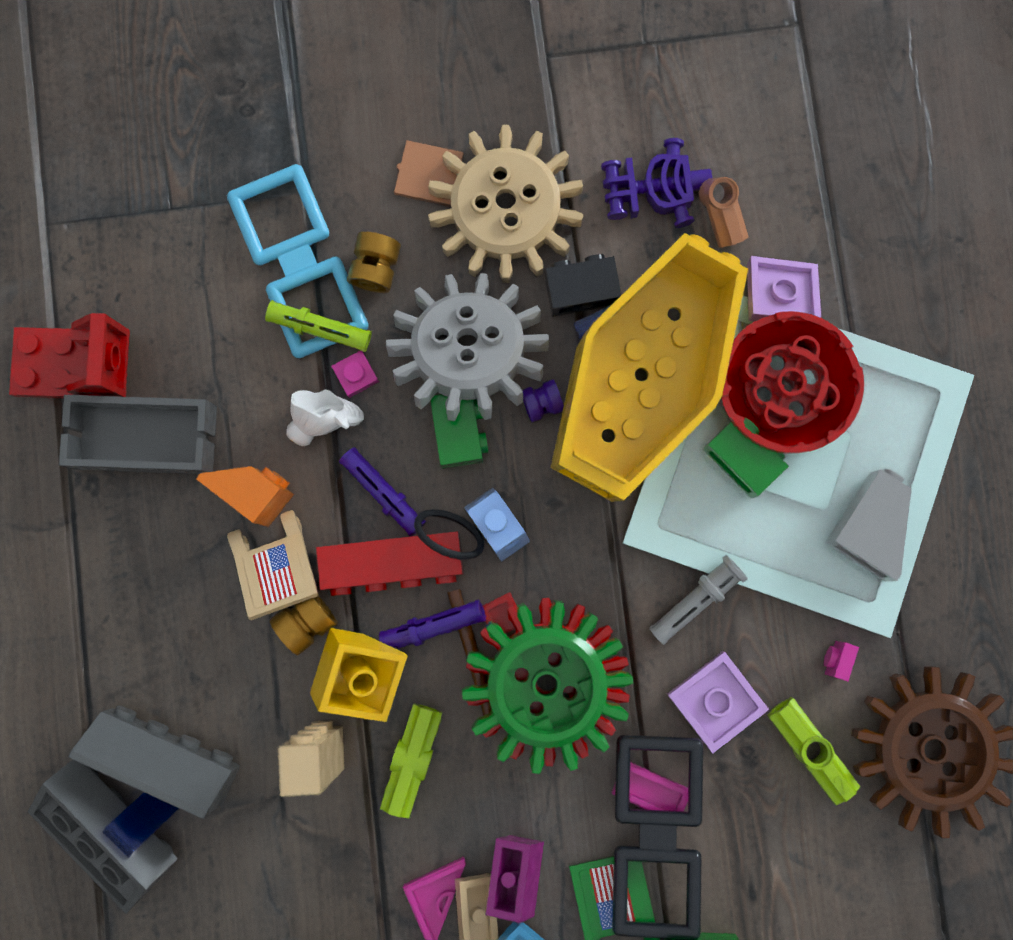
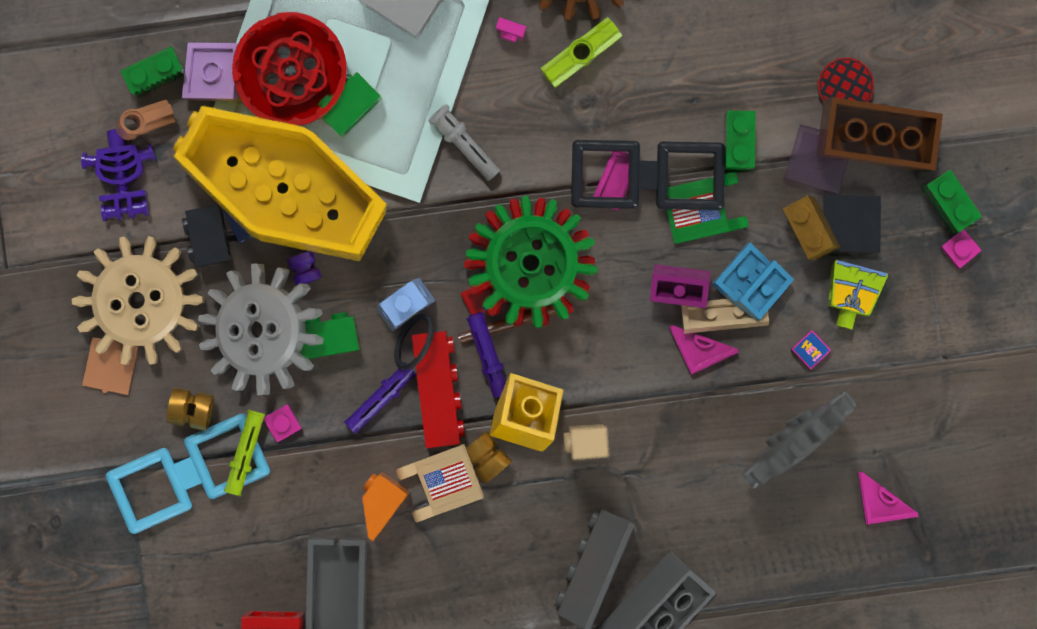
camera: 90 degrees left, 5 degrees up
(139, 823) = (639, 578): clear blue tile -> none
(320, 414) = (318, 450): white hair -> none
(411, 761) = (593, 369): lime piece -> none
(717, 702) = (544, 127): lavender plate -> none
(781, 222) = (153, 72): none -> green brick

